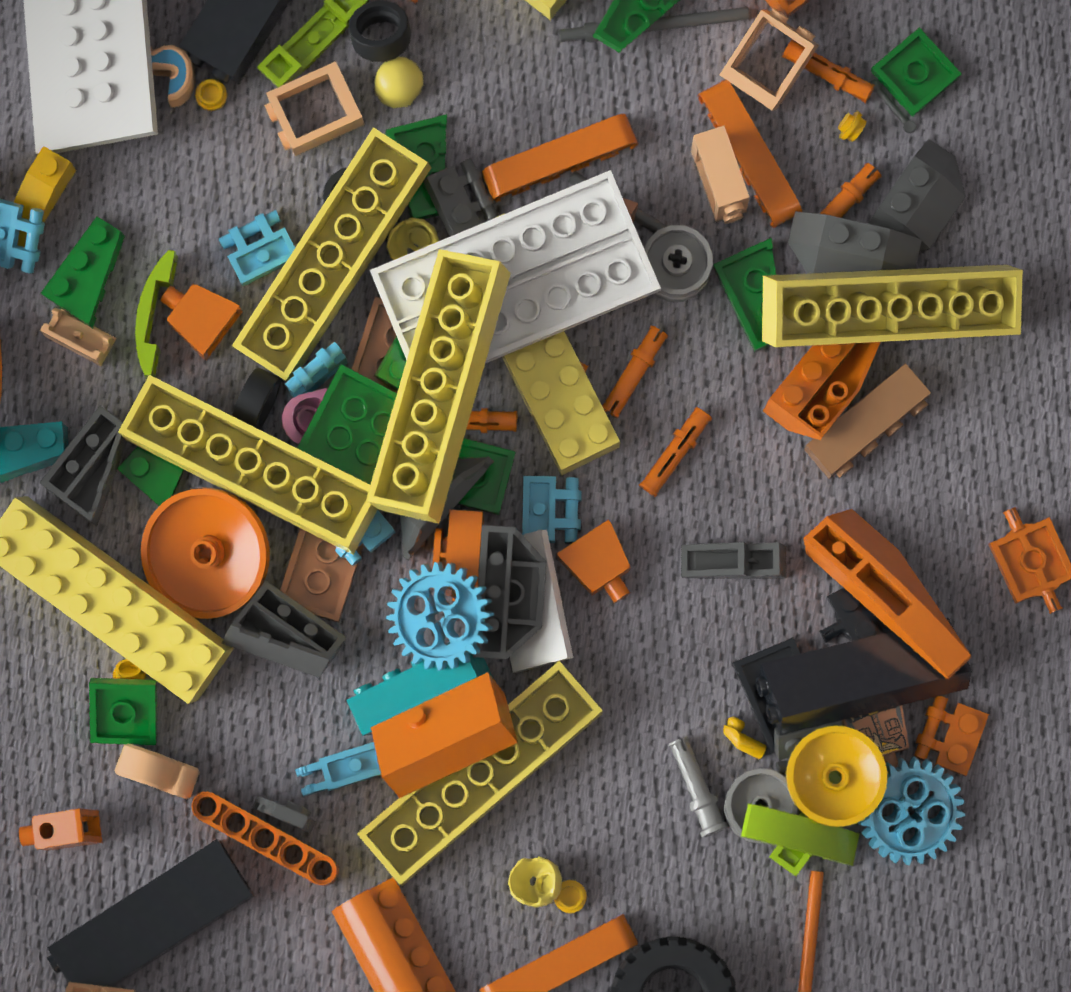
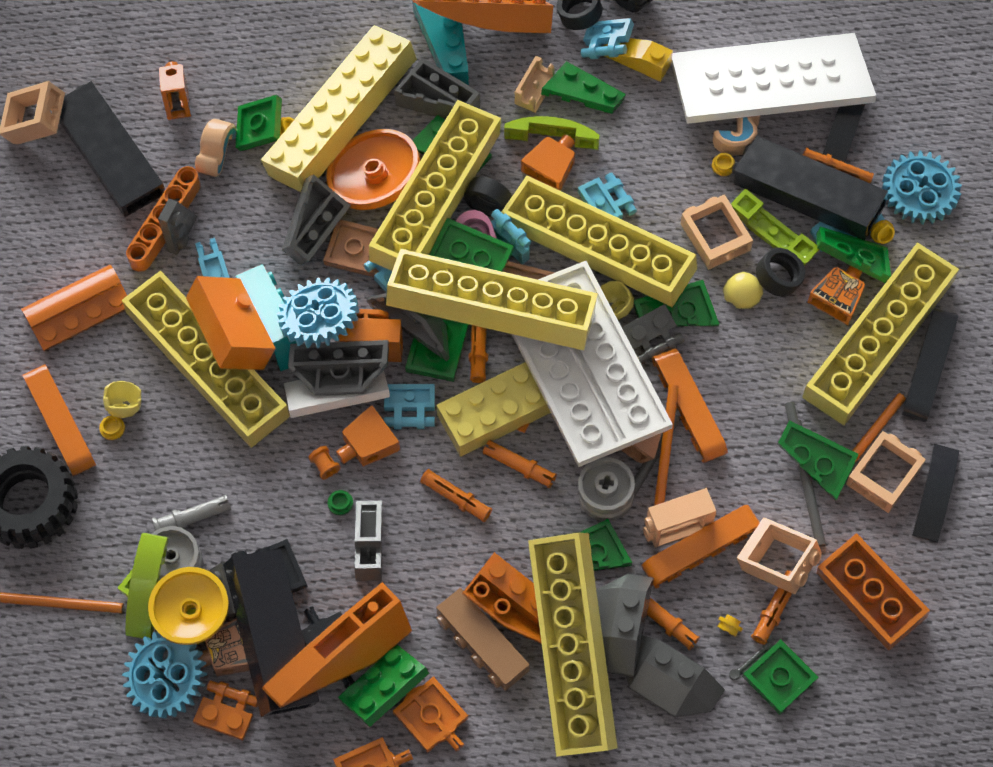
camera: 85 degrees right, 15 degrees down
(625, 189) = (666, 447): none -> orange piece
(628, 617) = (324, 462): none -> orange bush
(681, 598) = (340, 502): none -> green plate
(741, 741) = (227, 547): yellow arm -> none
(928, 540) = (383, 685): none -> green plate
(959, 486) = (431, 715): none -> orange plate

